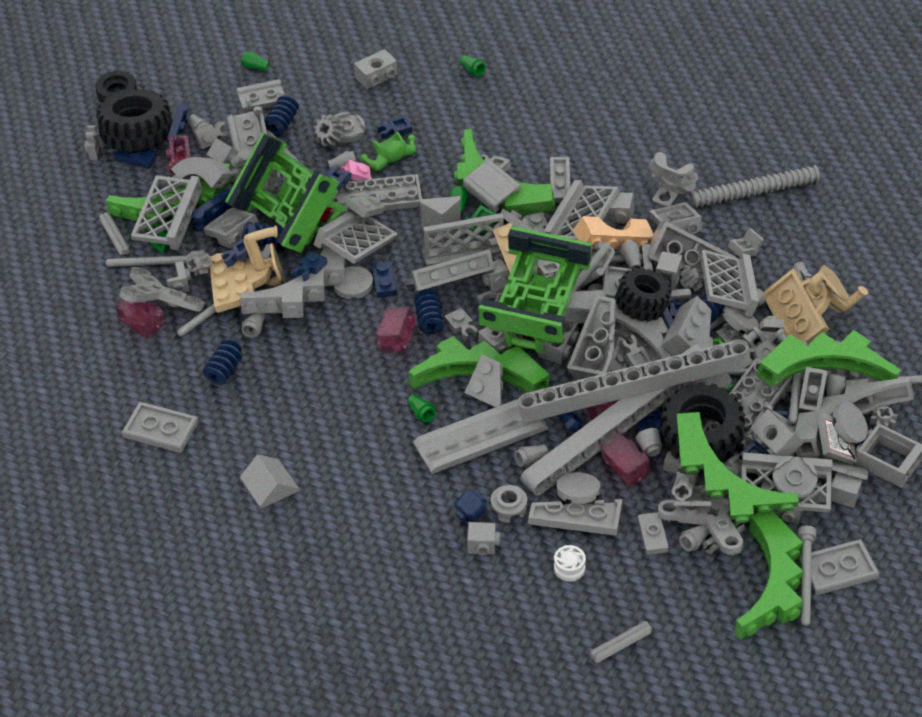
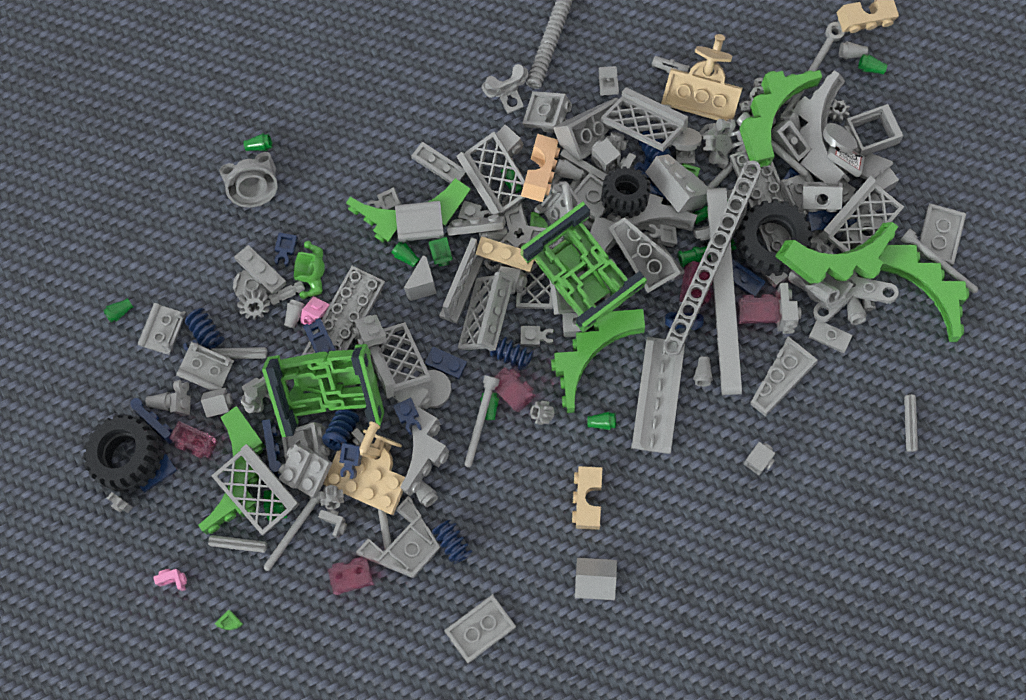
camera: 50 degrees left, 25 degrees up
(43, 264) = (228, 621): none -> bright green tile
(52, 207) = (166, 577): none -> bright pink bracket
(111, 80) = (55, 429): black tyre -> none
(149, 288) = (346, 545): light grey piece -> none
(193, 339) = (410, 549): none -> light grey wing
(208, 230) = (304, 470): none -> light grey plate
(211, 170) = (233, 432): light grey arch -> none
(352, 425) = (588, 480): none -> tan arch
(357, 149) = (286, 292): none -> light grey axle
(361, 121) = (260, 270): none -> light grey plate
(368, 324) = (492, 408): none -> green cone
(375, 69) = (200, 211): light grey brick -> none
(383, 305) = (490, 385): none -> light grey piece
(392, 360) = (542, 412): none -> light grey gear
(432, 73) = (250, 181): none -> light grey piece
(470, 506) = (724, 447): dark blue head -> none
(487, 381) = (615, 358): light grey wing -> none
(506, 510) = (732, 425): light grey piece -> none
(569, 563) = (821, 411): white wheel -> none
(578, 487) = (758, 360): light grey tile -> none
(642, 474) = (788, 310): none -> light grey plate
(649, 441) = (759, 283): light grey hat -> none
(771, 324) = (707, 122): light grey plate -> none
(795, 476) = (868, 211): light grey tile -> none

